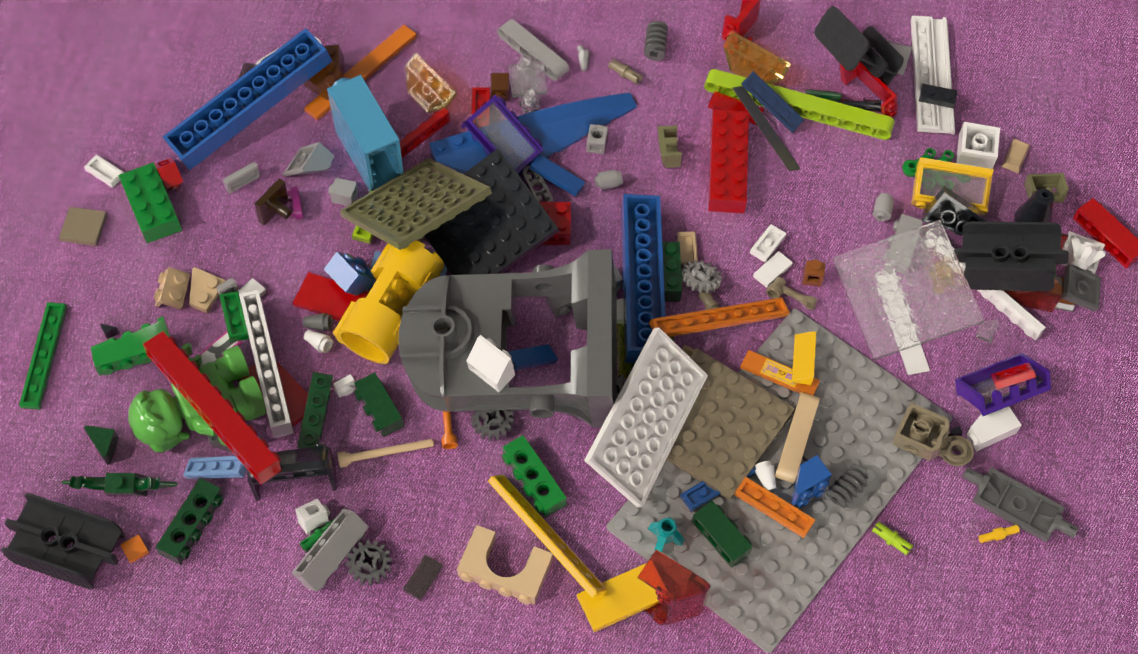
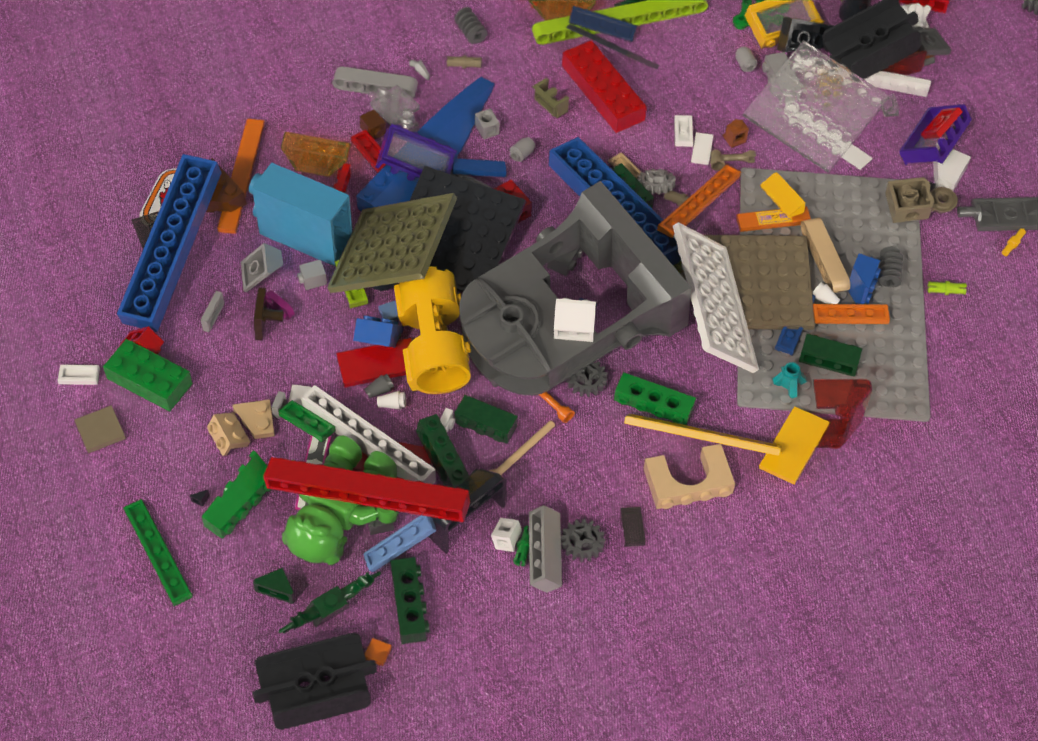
camera: 35 degrees left, 5 degrees down
(725, 102) = (558, 46): red tile -> none

